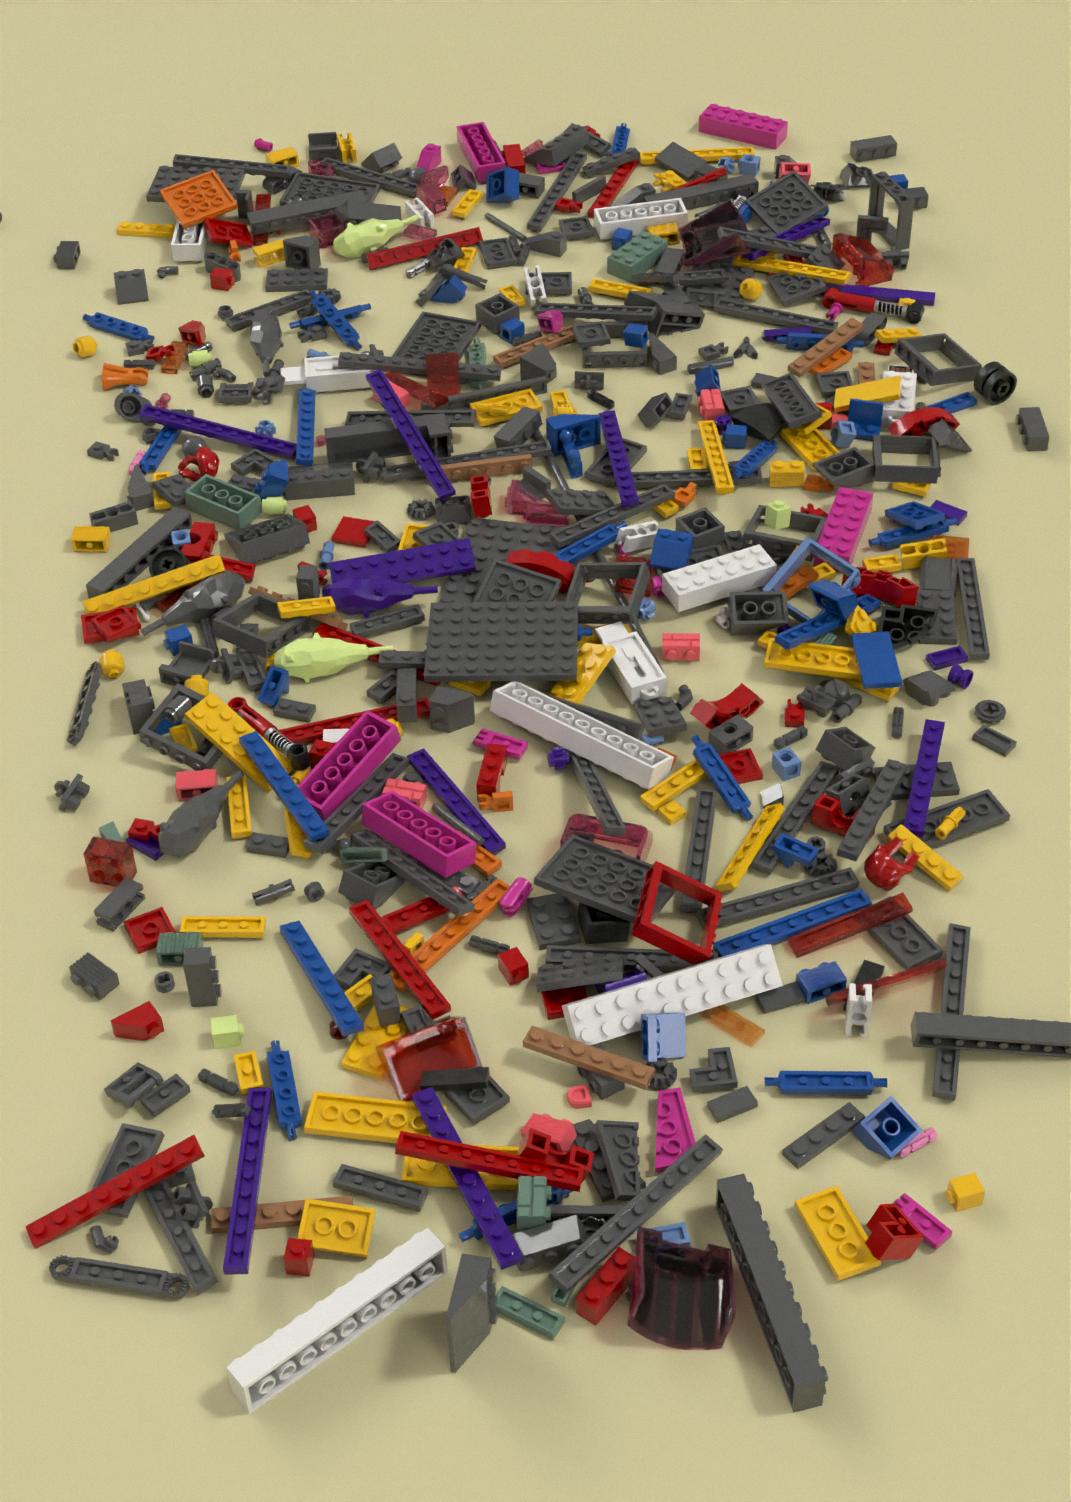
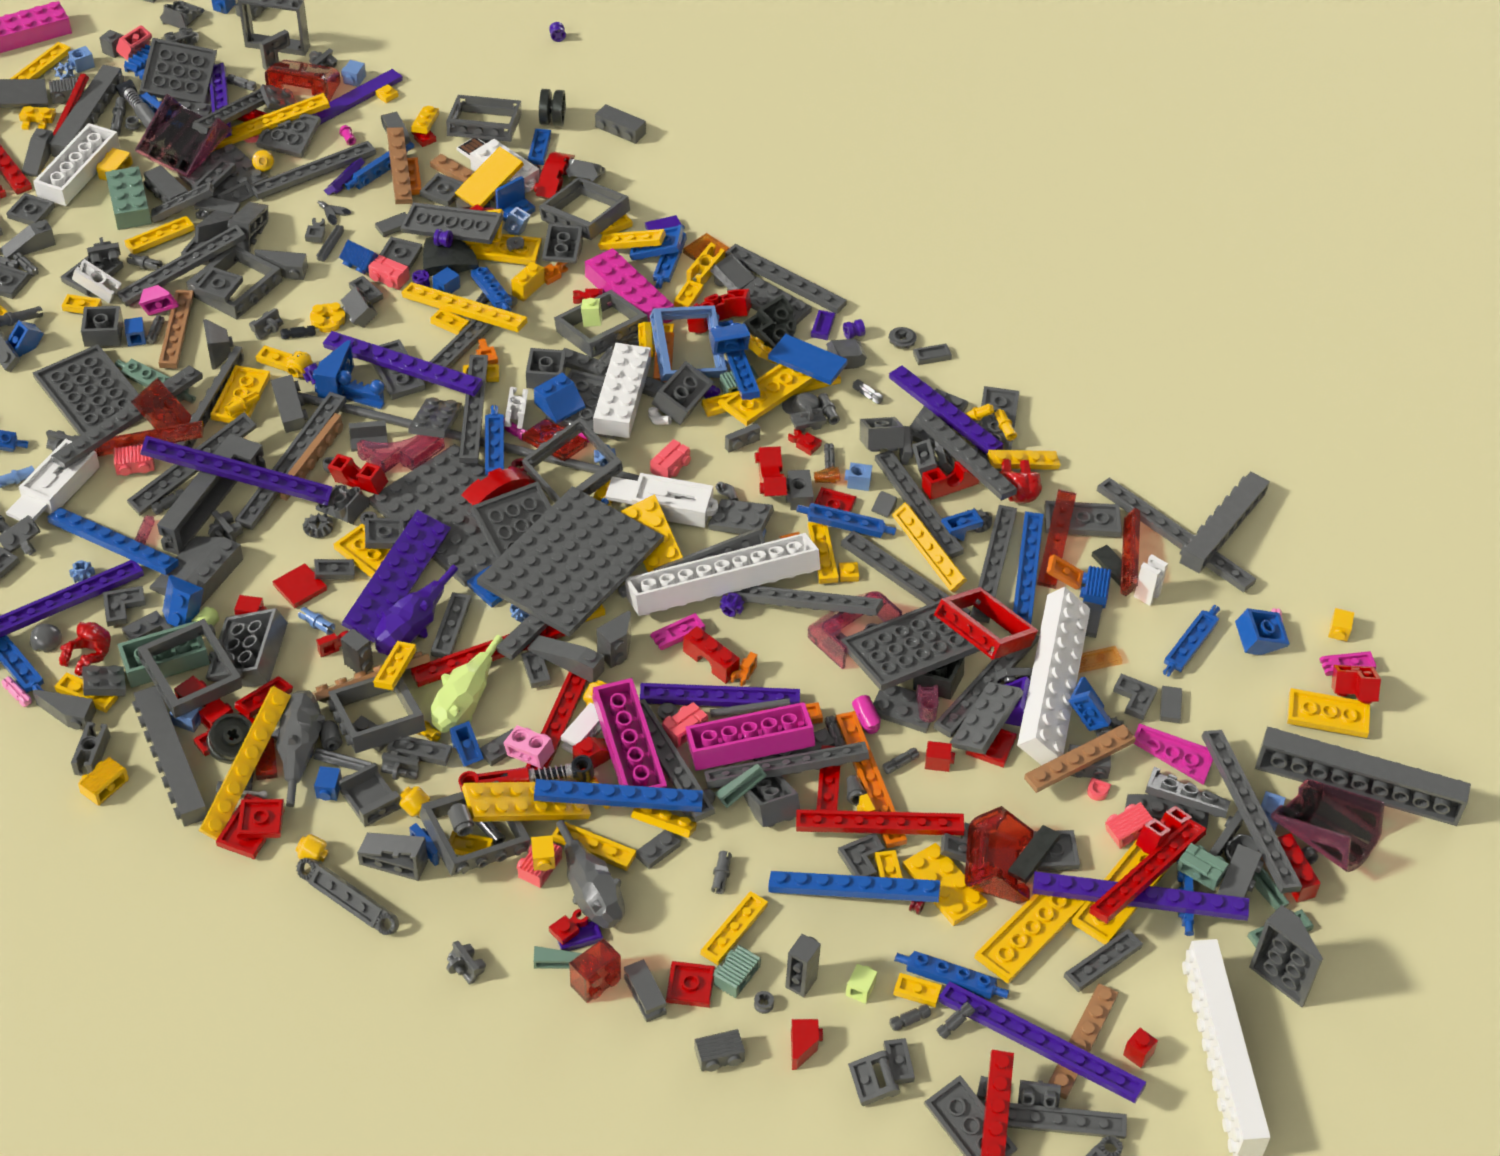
camera: 60 degrees left, 5 degrees up
(176, 529) = (203, 696): none -> dark grey window
(190, 772) = (543, 853): none -> yellow brick
(297, 717) = (529, 746): none -> bright pink brick
(314, 891) = (746, 843): dark grey bush -> none
(337, 1227) = (1129, 1007): yellow plate -> none
(385, 1000) = (923, 853): dark grey brick -> none
(429, 929) = (854, 790): none -> dark grey cone
(560, 925) = (927, 702): none -> clear pink piece
(567, 272) = (104, 250): none -> dark grey hips
(620, 238) = (89, 193): blue brick -> none
(631, 403) = (331, 310): none -> yellow plate
(635, 335) = (254, 259): blue brick -> none
(752, 674) = (742, 437): none -> dark grey plate
(766, 399) = (443, 238): none -> dark purple wheel
(766, 744) = (828, 475): none -> clear orange cone
(811, 947) = (1065, 572): none -> orange plate
(816, 444) = (515, 243): none -> dark grey piece
(817, 841) = (954, 506): dark grey bush -> none
(823, 1135) = (1235, 671): dark grey plate -> none
(869, 305) = (362, 112): piece -> none
(899, 499) = (632, 239): none -> yellow plate
(903, 278) = (353, 73): none -> medium blue brick
(942, 798) = (978, 413): none -> yellow axle

